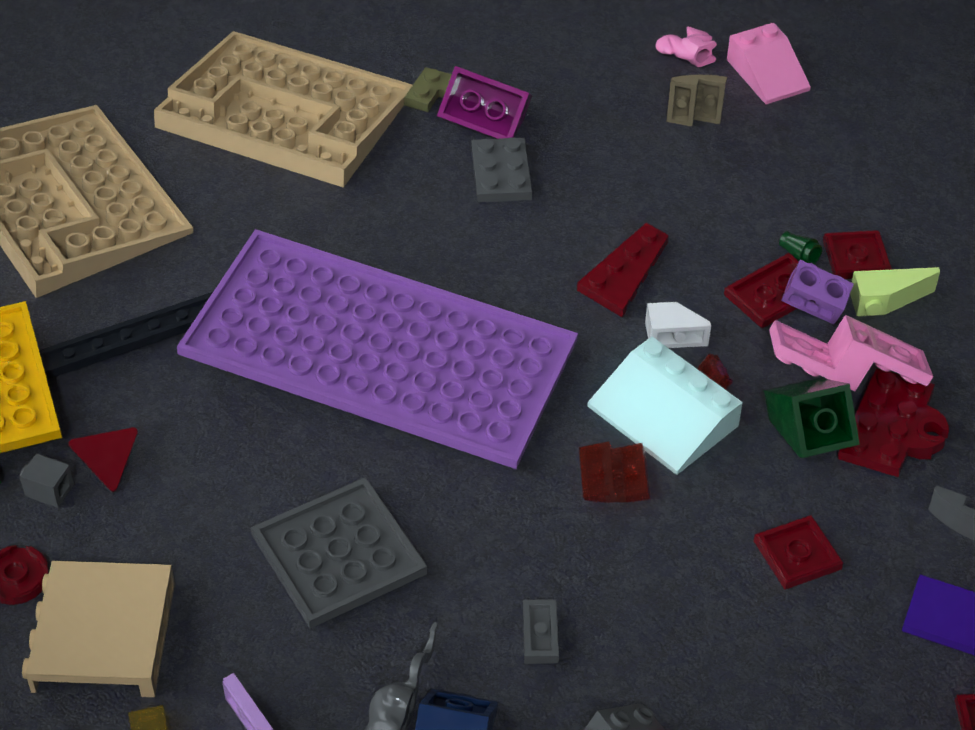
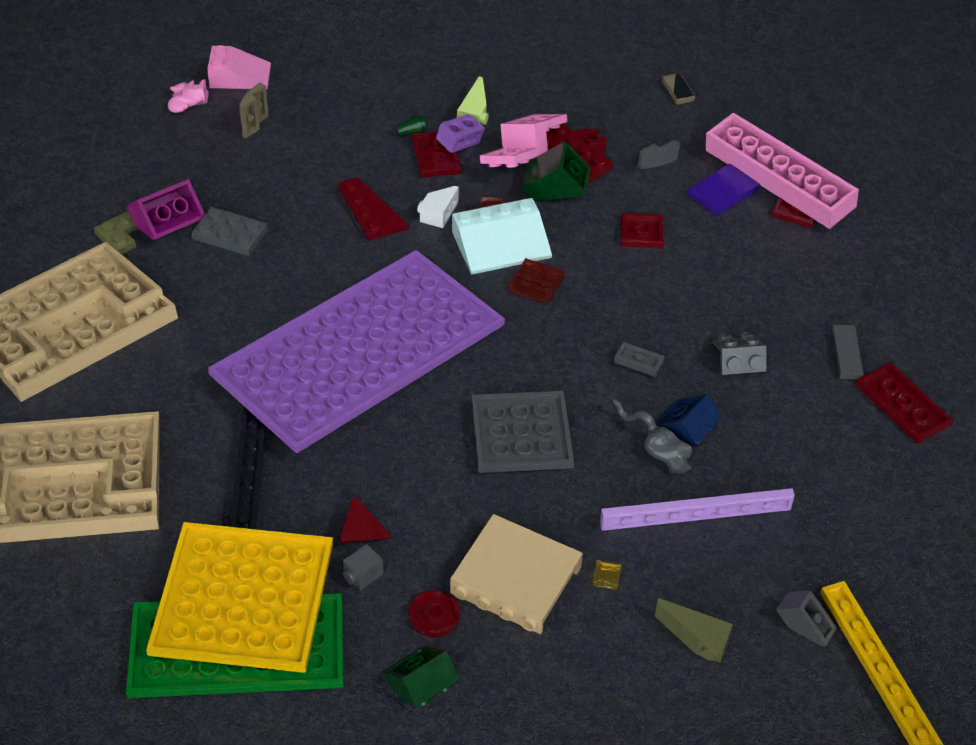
camera: 65 degrees left, 0 degrees up
(855, 252) = (433, 107): dark red tile -> none

